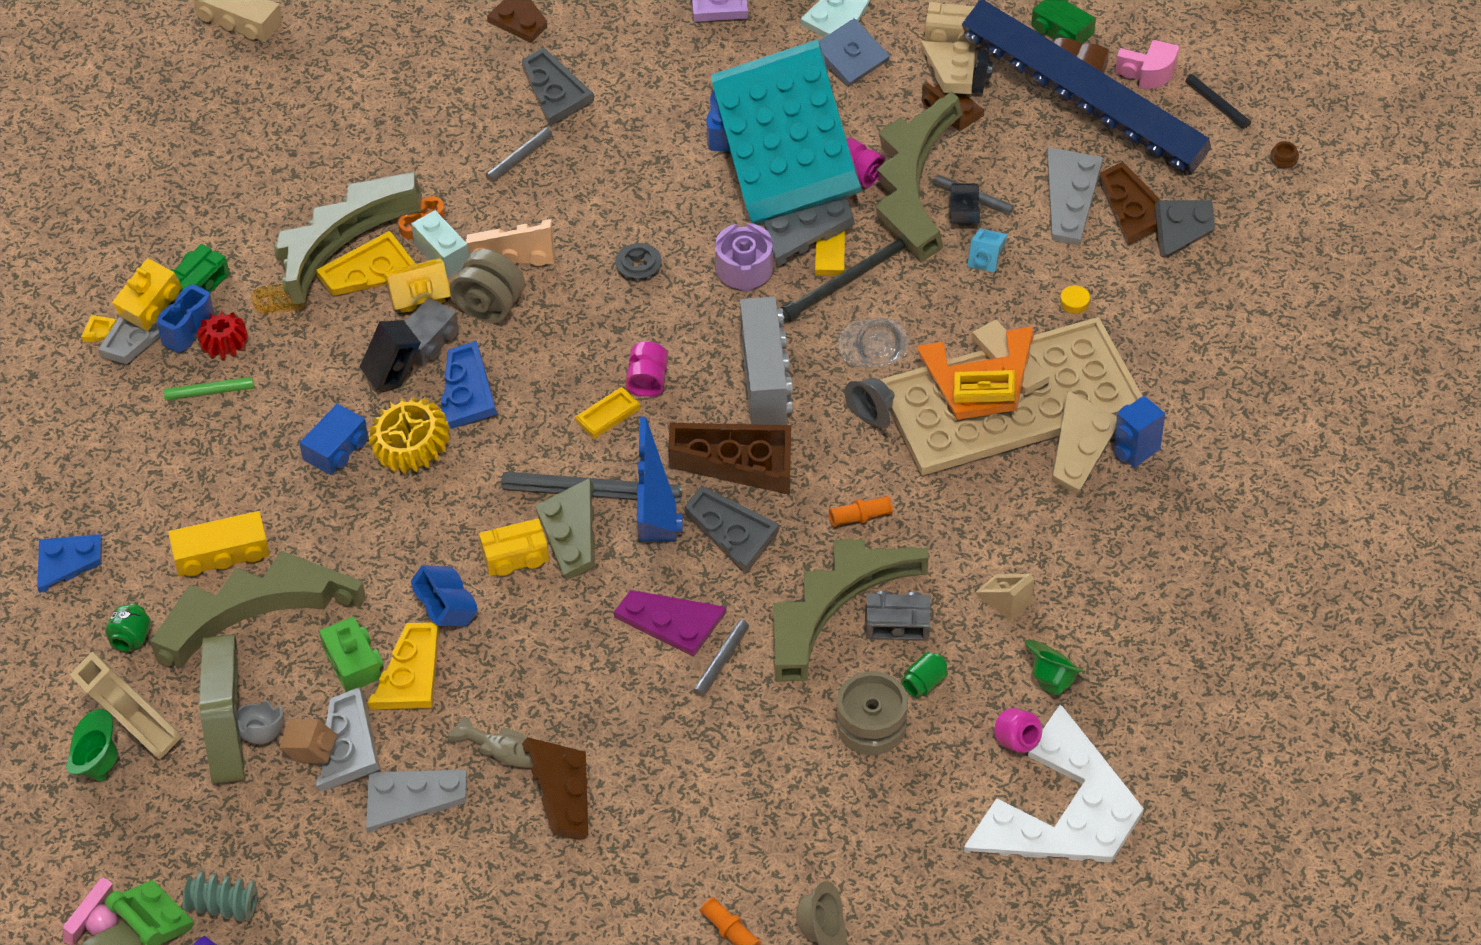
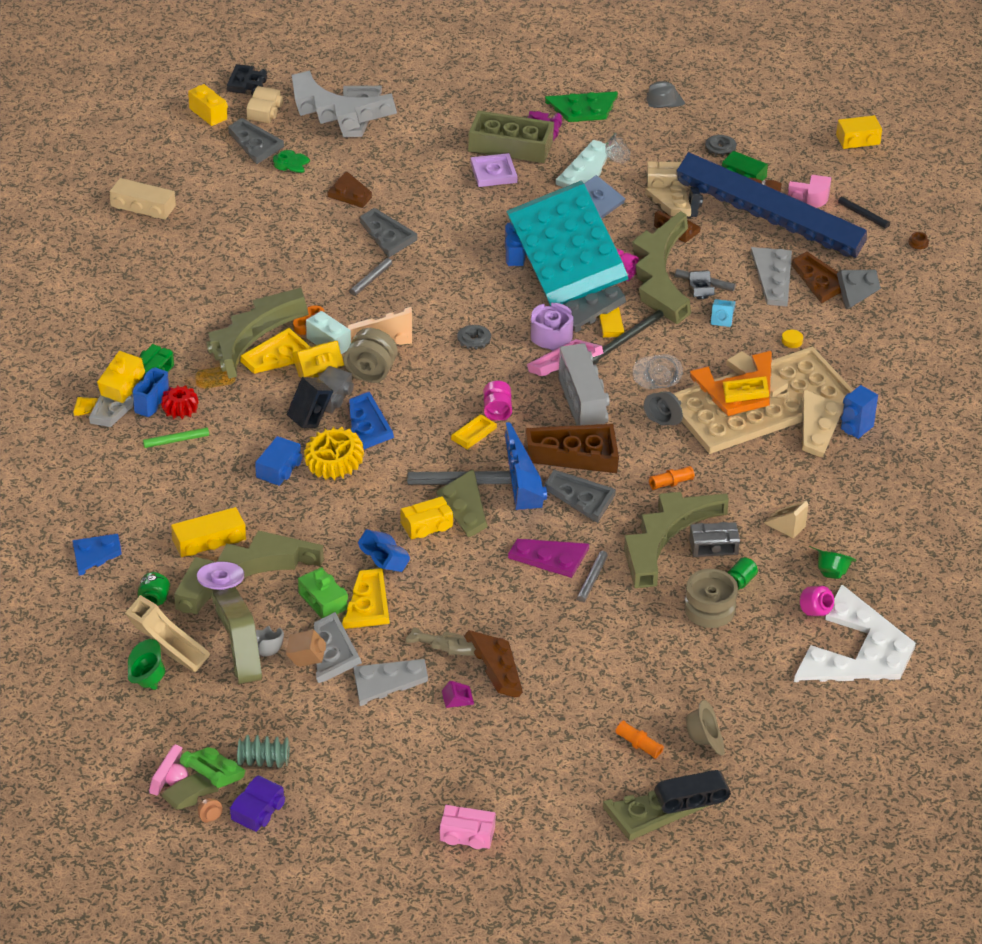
camera: 10 degrees left, 10 degrees down
(214, 620) = (220, 575): none -> lavender dish
(500, 829) = (457, 695): none -> magenta slope
(727, 314) = (550, 361): none -> bright pink wing

